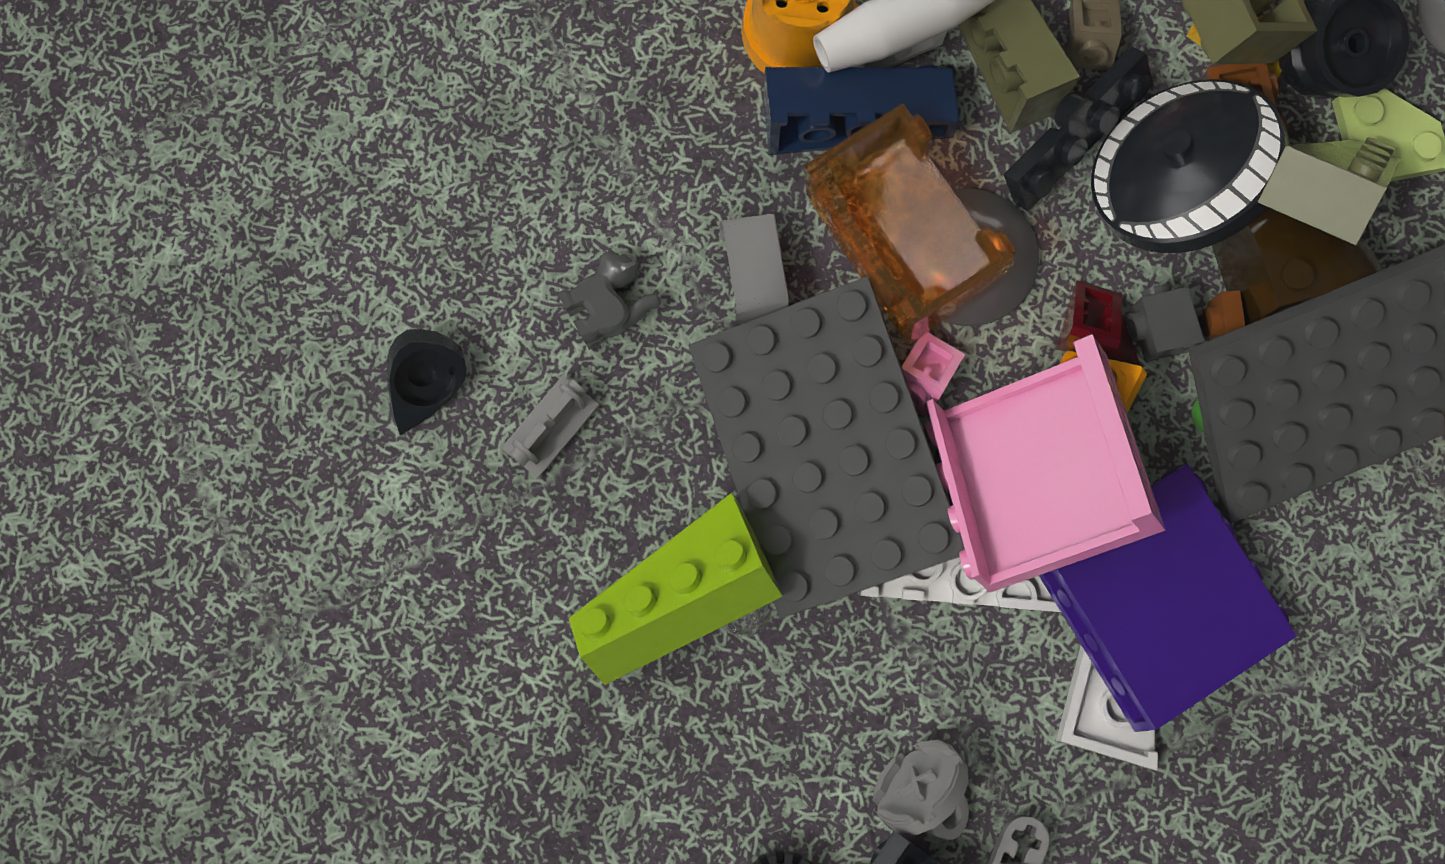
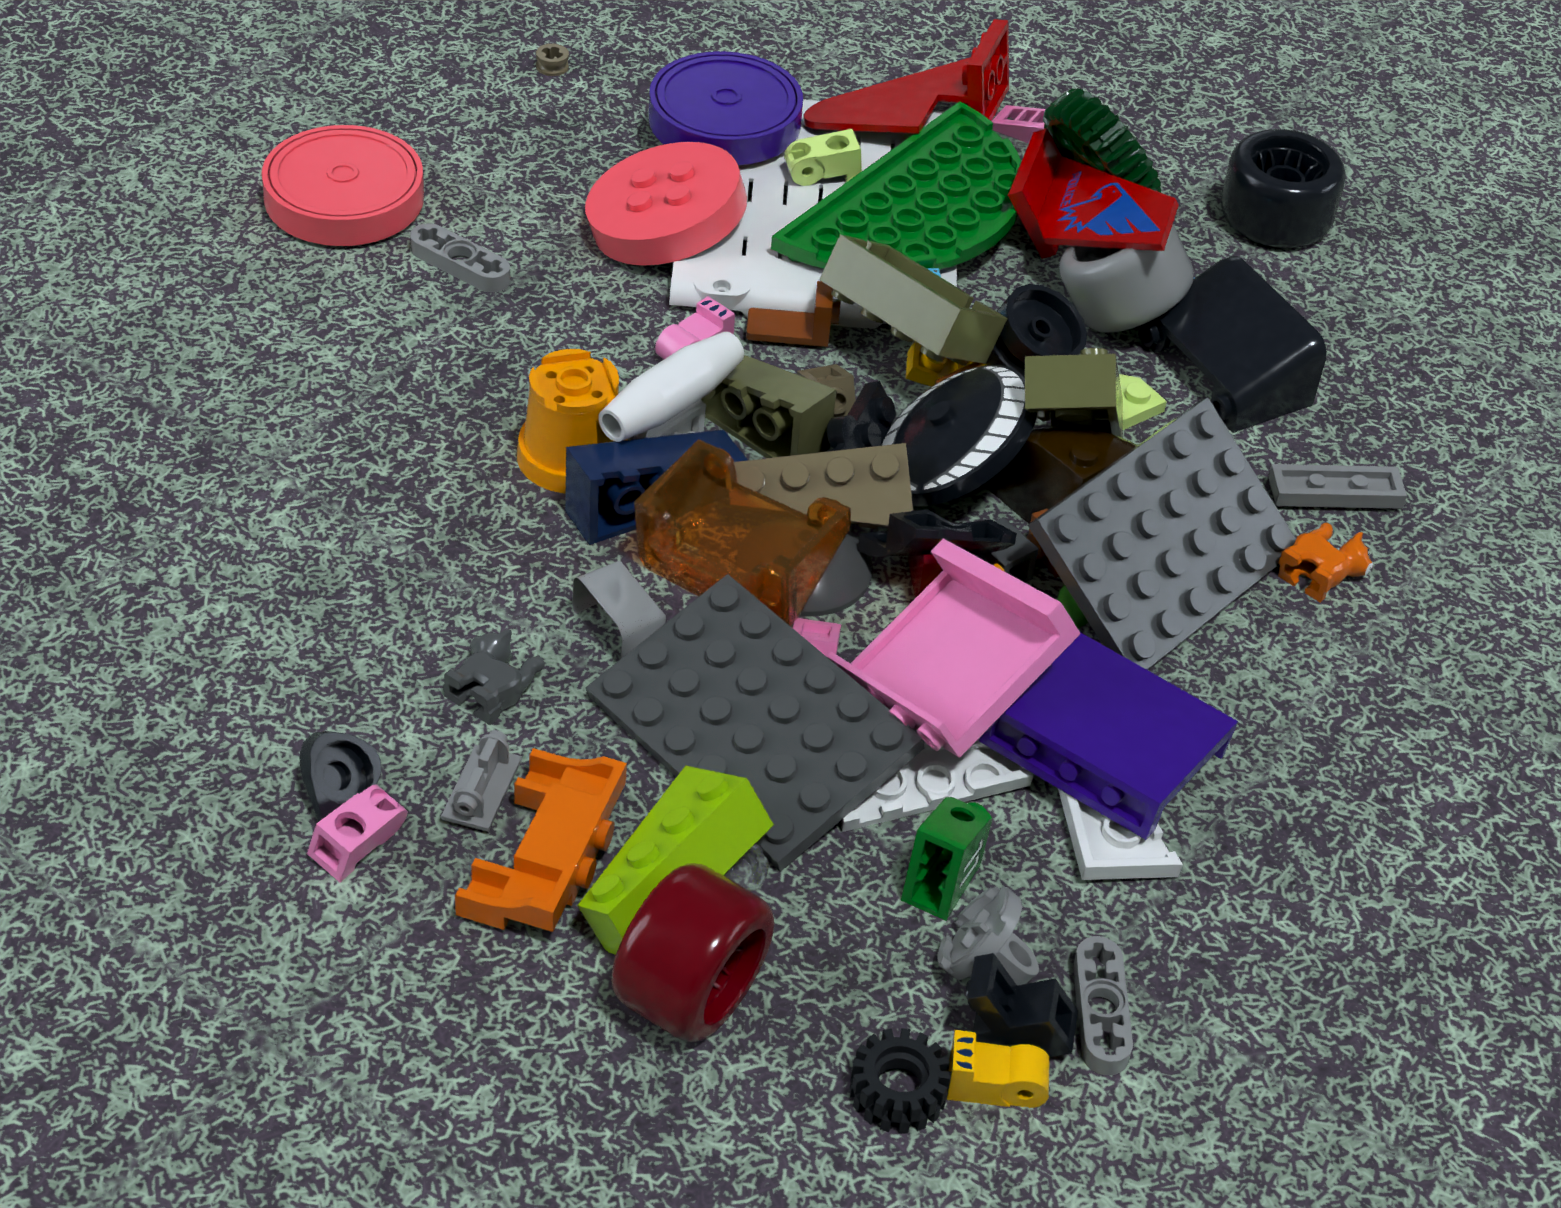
camera: 30 degrees left, 35 degrees down
(419, 443) = (355, 831): none -> bright pink leg
(586, 532) = (557, 849): none -> orange bracket
(641, 725) = (692, 952): none -> dark red wheel
(928, 688) = (952, 834): none -> green torso
(1032, 194) = (865, 479): none -> dark tan wing
(1098, 295) = (921, 530): none -> black slope

